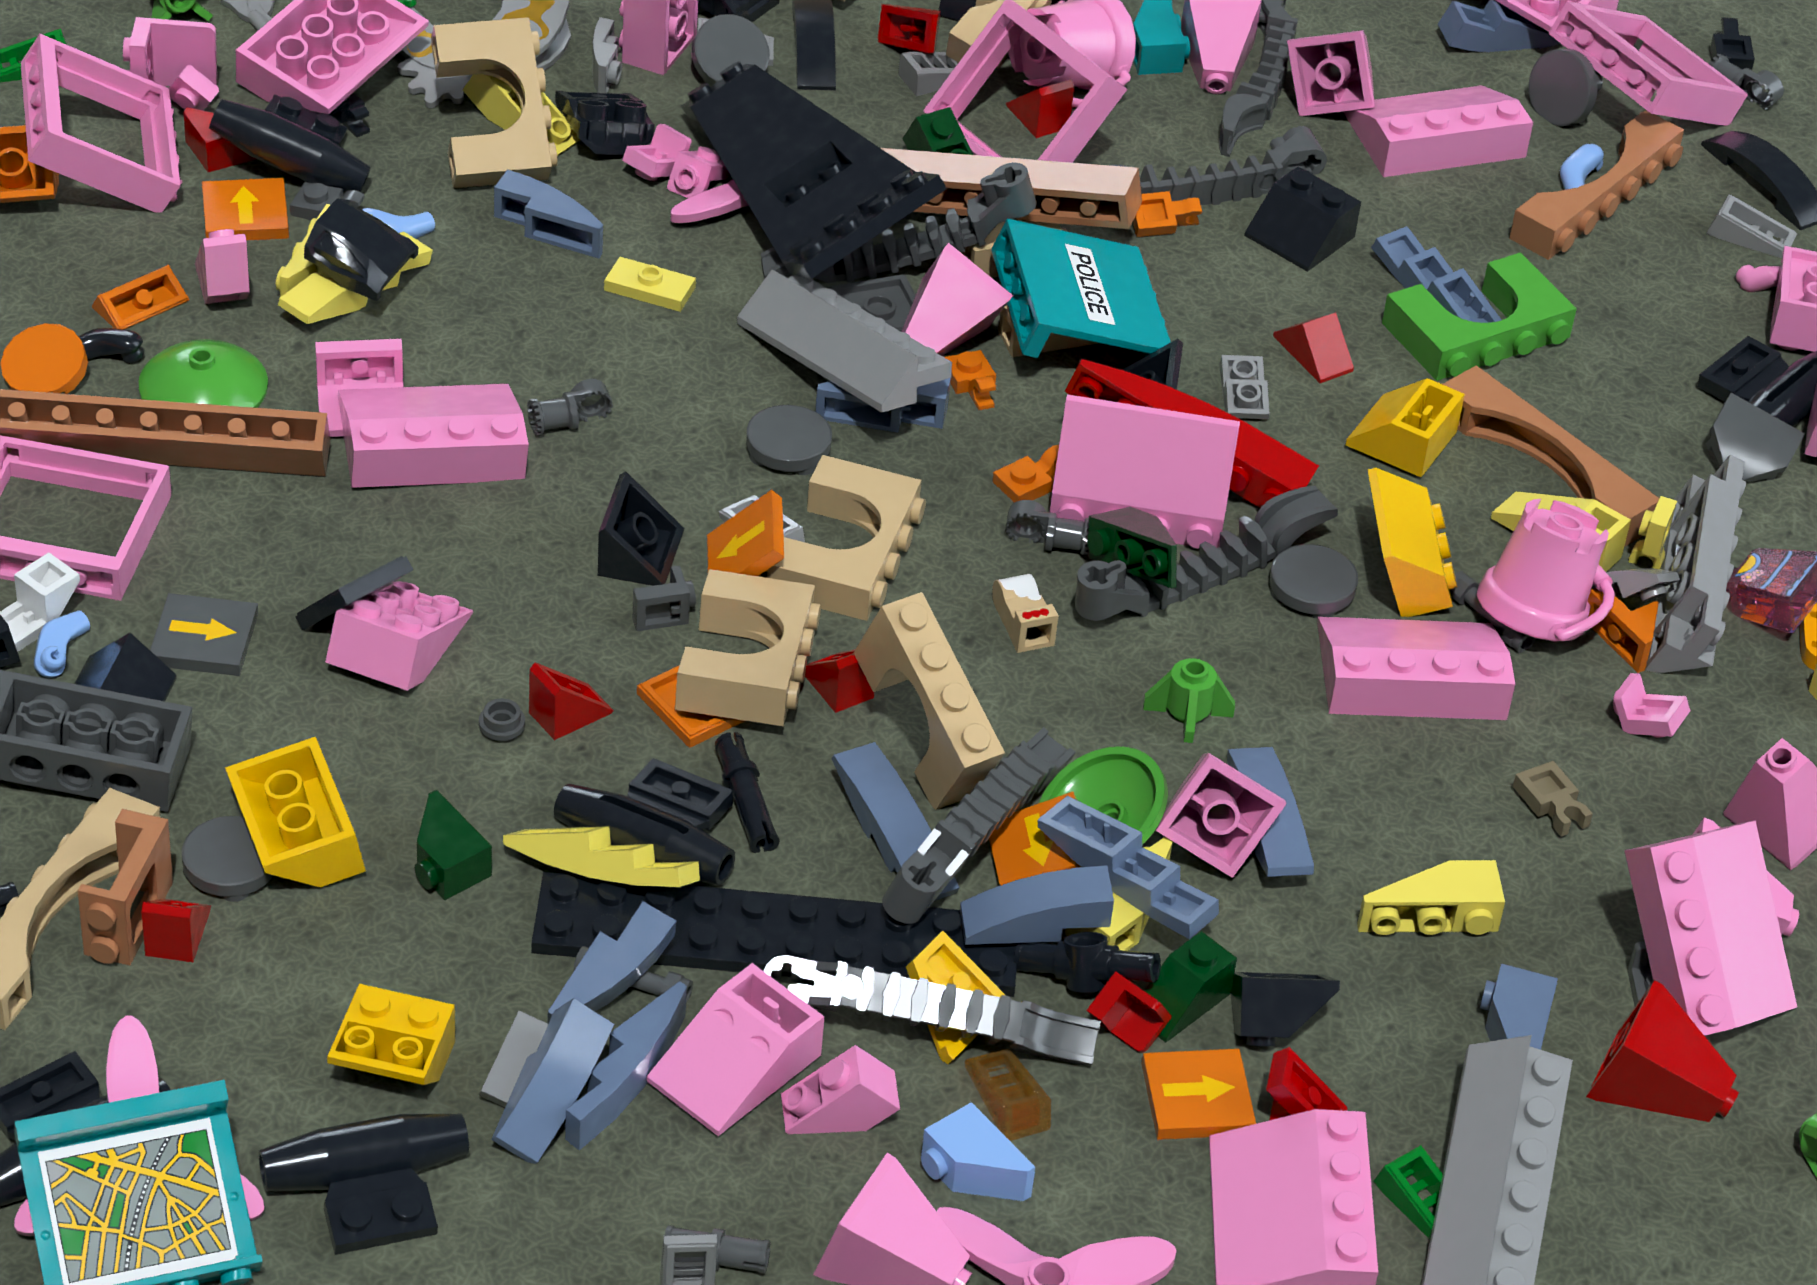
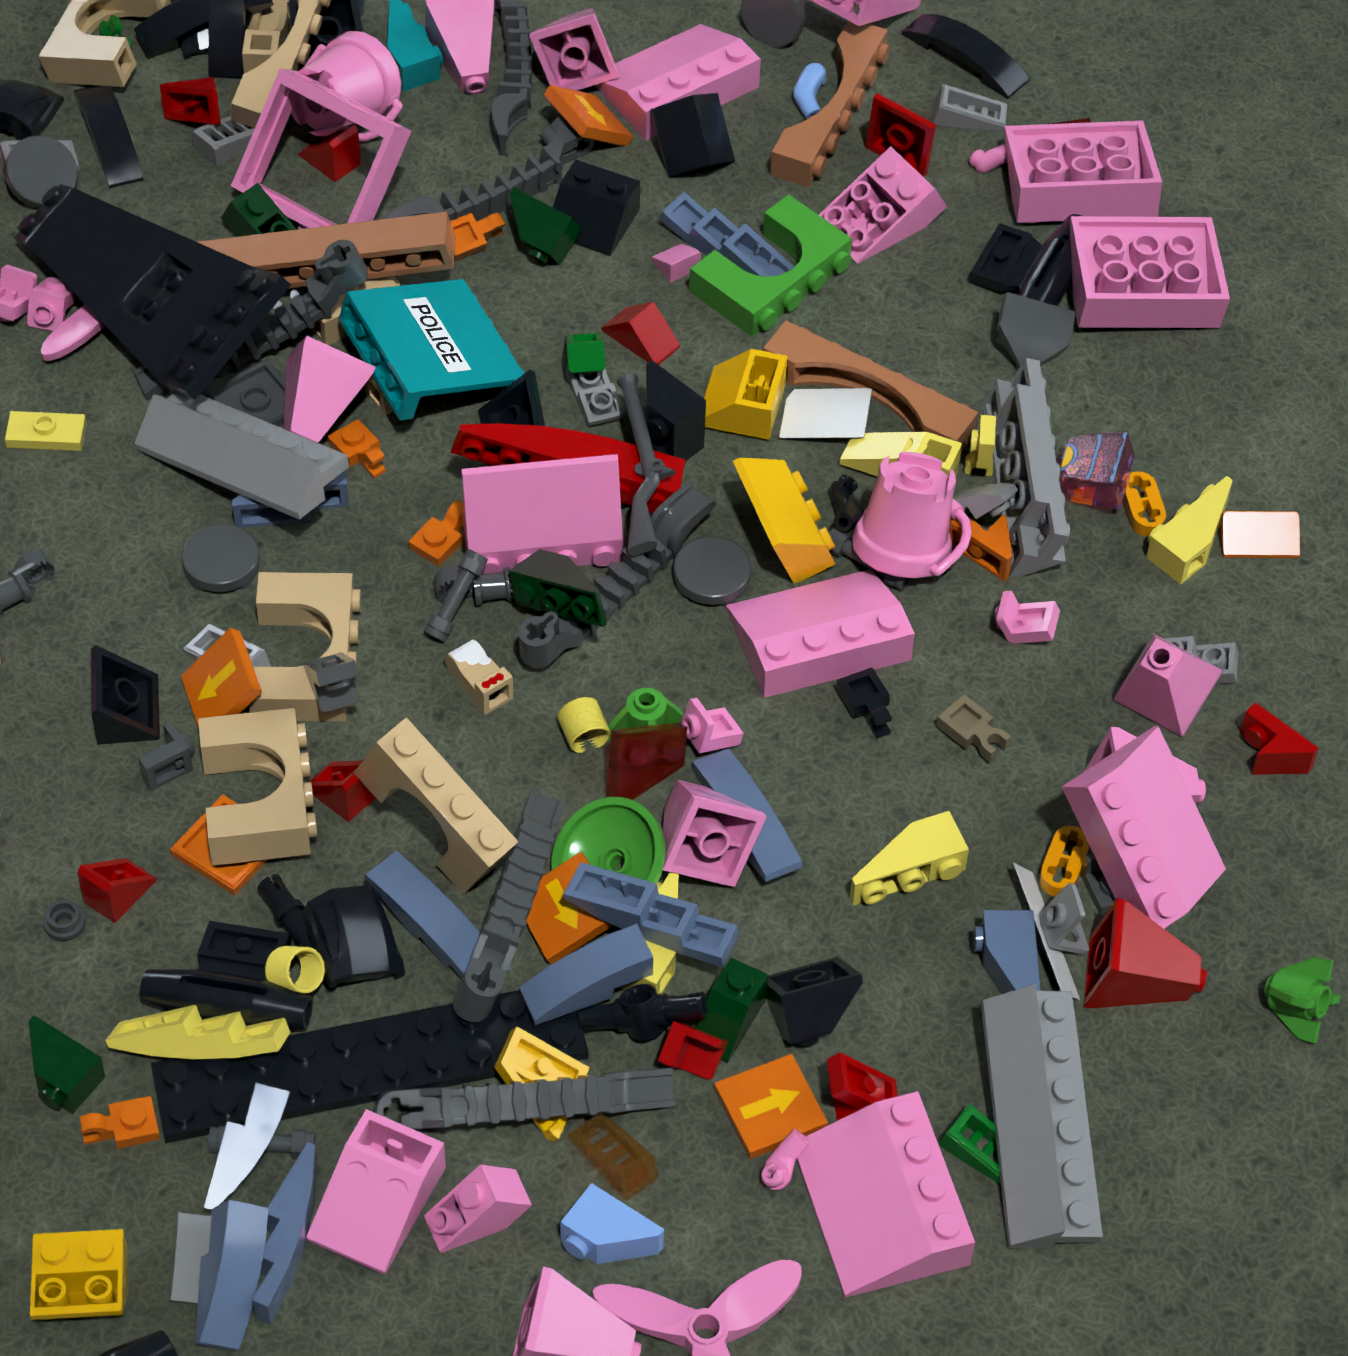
camera: 15 degrees left, 10 degrees up
(497, 923) = (128, 1123): none -> orange plate
(744, 814) = (311, 968): none -> light yellow piece
(799, 808) = (353, 935): none -> black slope
(863, 568) = (333, 681): none -> dark grey slope
(1050, 501) = (471, 565): none -> dark grey bar
(1124, 672) = (580, 717): none -> light yellow piece
(1177, 726) = (644, 757): none -> clear red wing
(1188, 1152) = (781, 1162): none -> bright pink arm
(1242, 223) = (543, 228): none -> dark green slope
(1246, 344) = (585, 352): none -> green slope
(1257, 722) = (710, 728): none -> bright pink bracket
(1279, 460) = (641, 530): none -> dark grey piece
(1320, 420) = (673, 414): none -> black slope
(1327, 135) = (588, 115): none -> orange tile
(1373, 292) = (676, 261): none -> bright pink slope
(1435, 175) = (692, 134): none -> black slope
(1444, 736) = (867, 695): none -> black plate
(1483, 551) = (846, 505): none -> black arm
(1492, 467) = (826, 413): none -> white sticker
(1568, 1008) = (1037, 905): none -> white sticker
(1584, 995) = (1061, 918): none -> light grey bracket
(1605, 944) = (1056, 857): none -> light orange beam
(1626, 291) = (884, 206): none -> bright pink slope
(1663, 227) = (902, 130): none -> red slope

